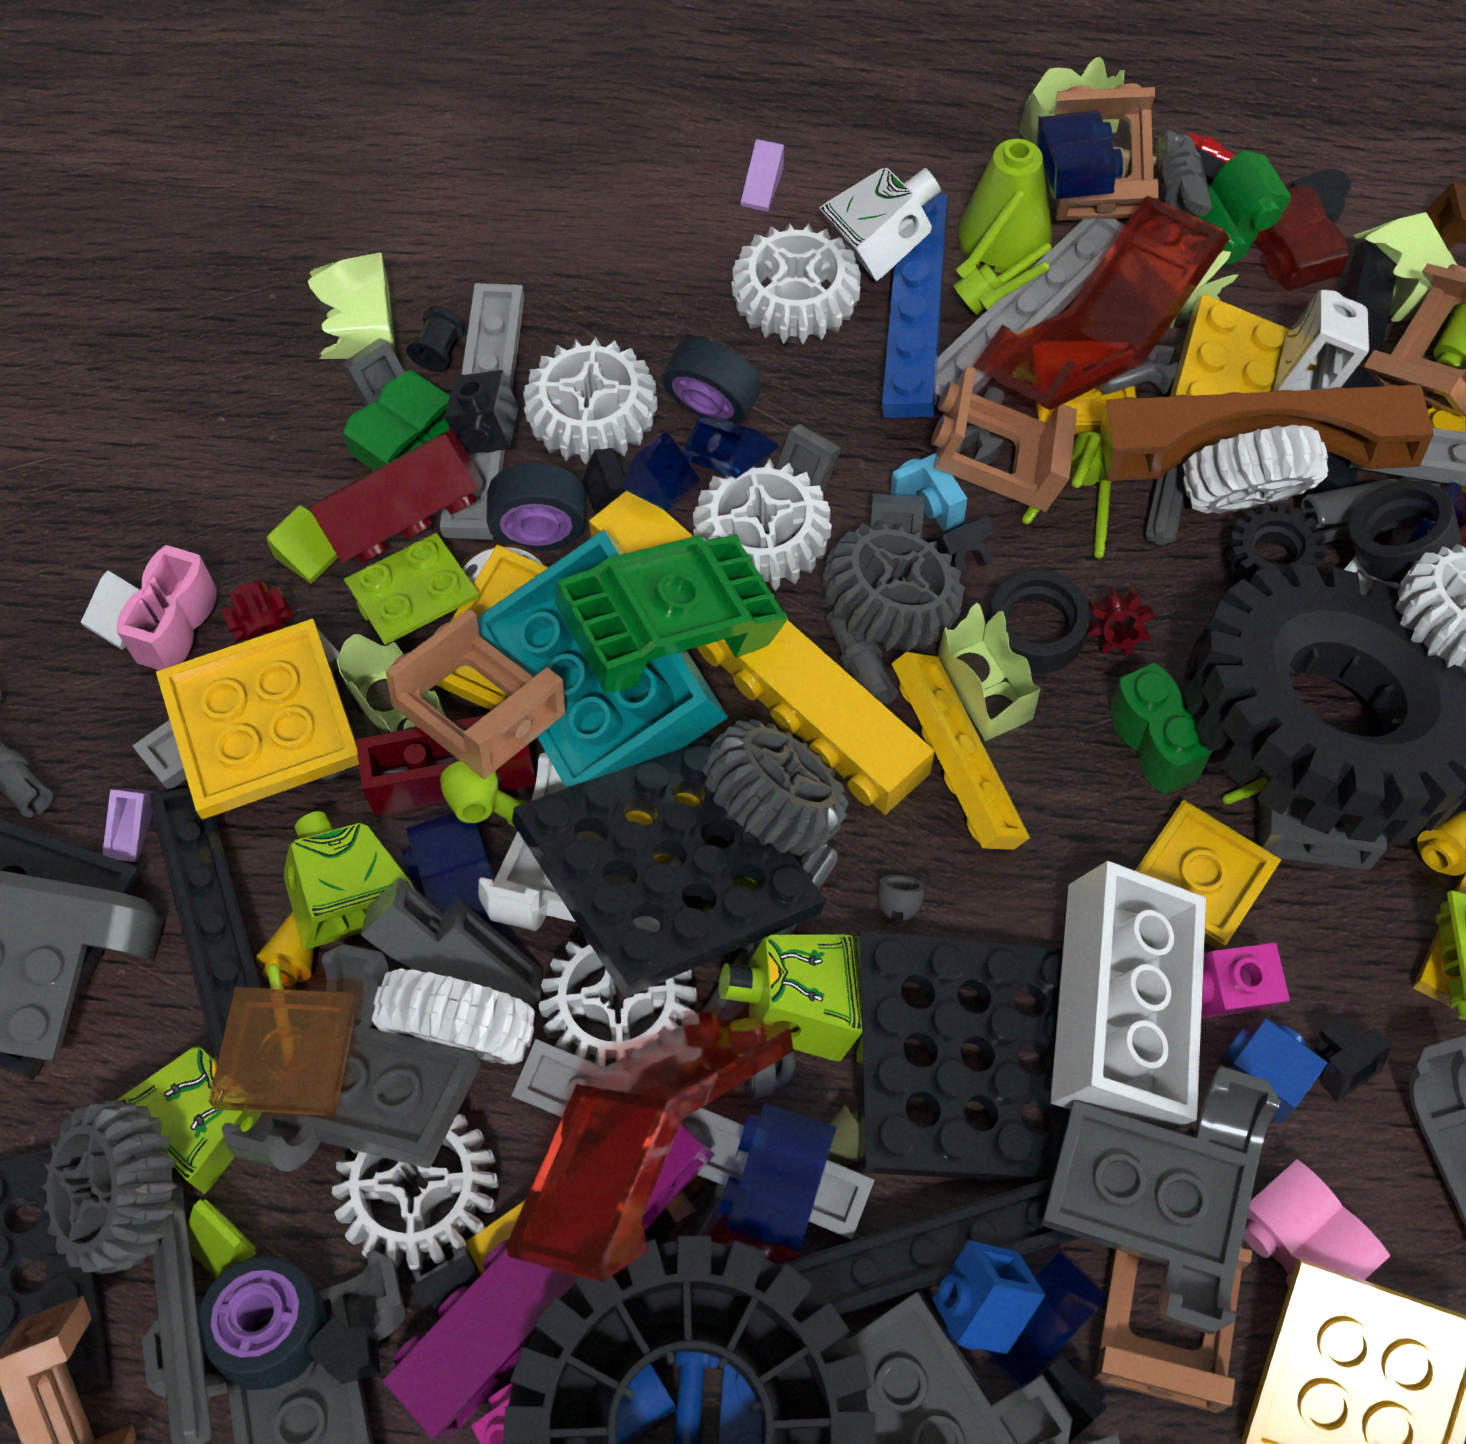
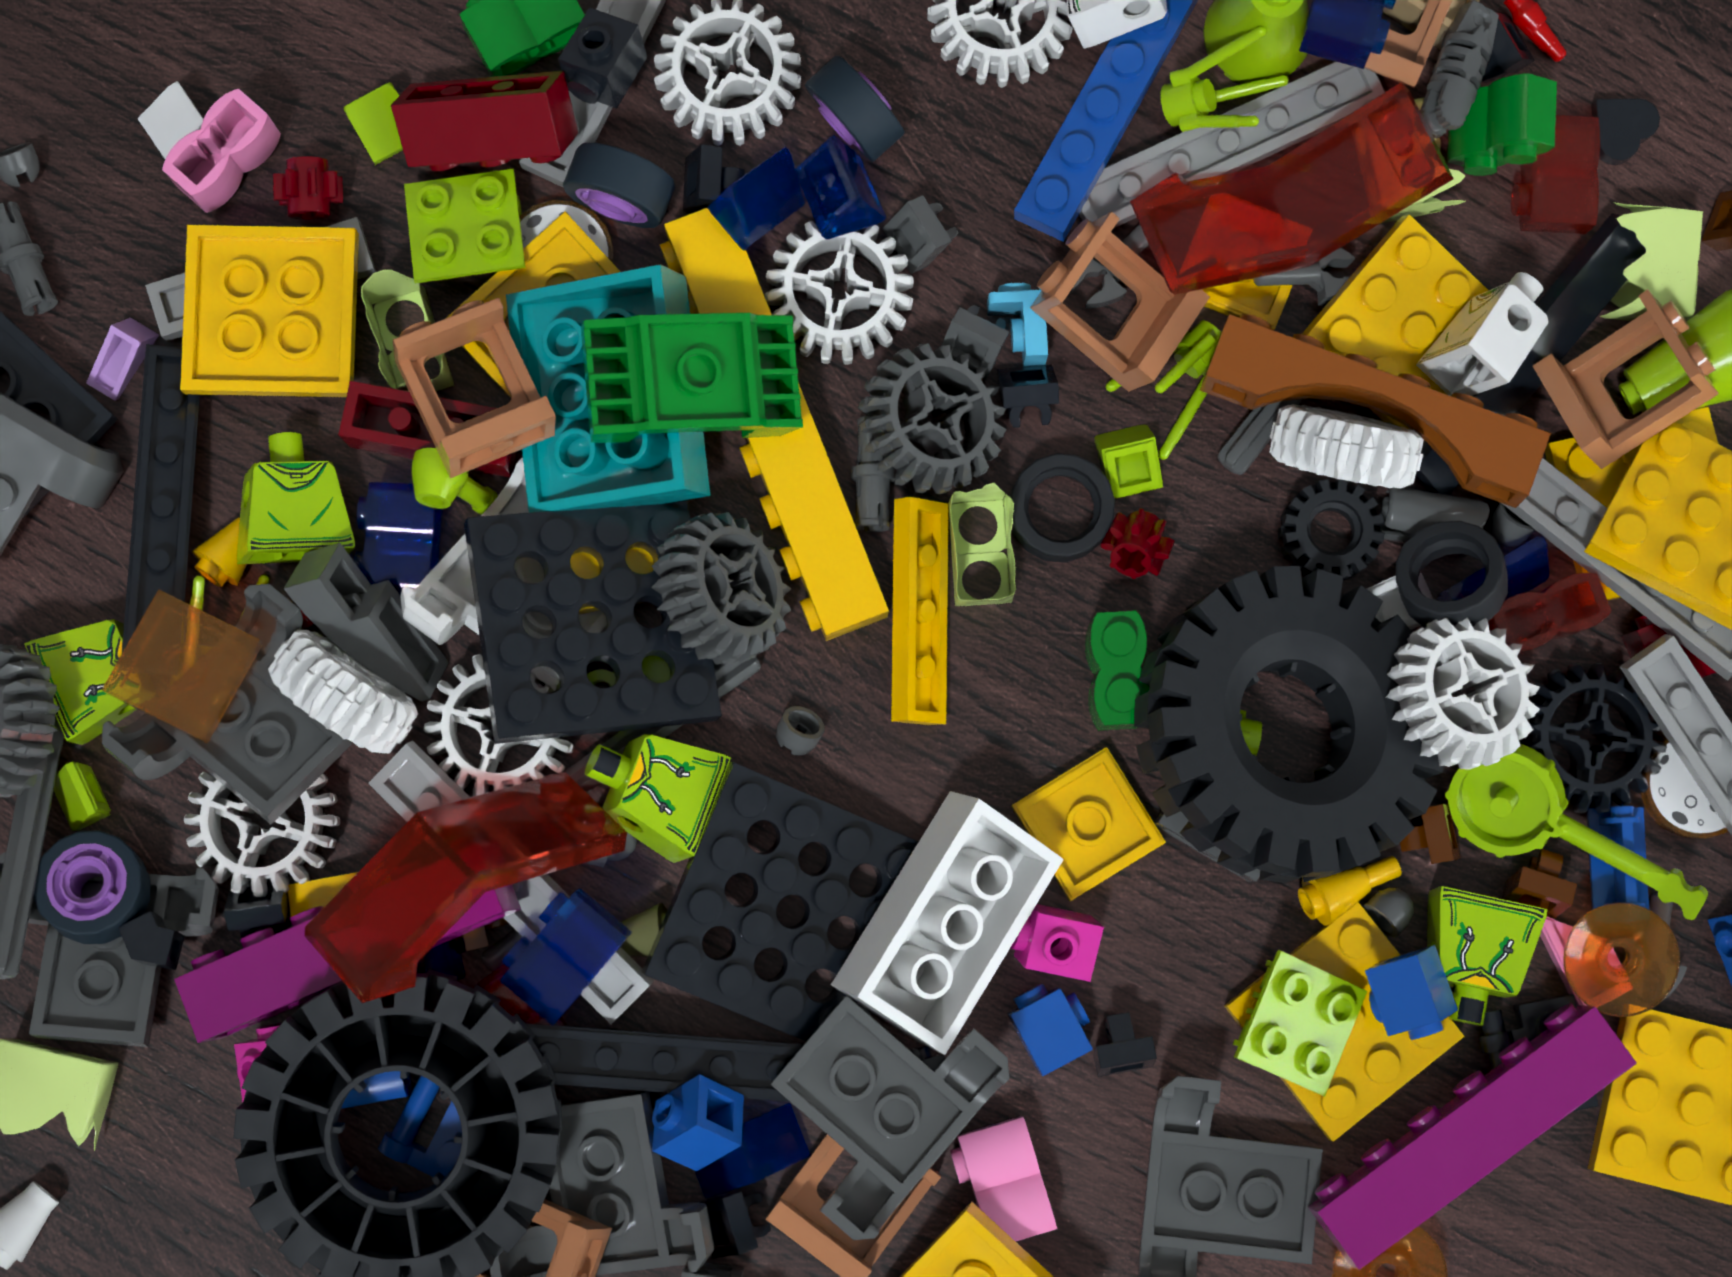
camera: 15 degrees right, 20 degrees up
(1079, 562) = (1129, 460): none -> lime slope

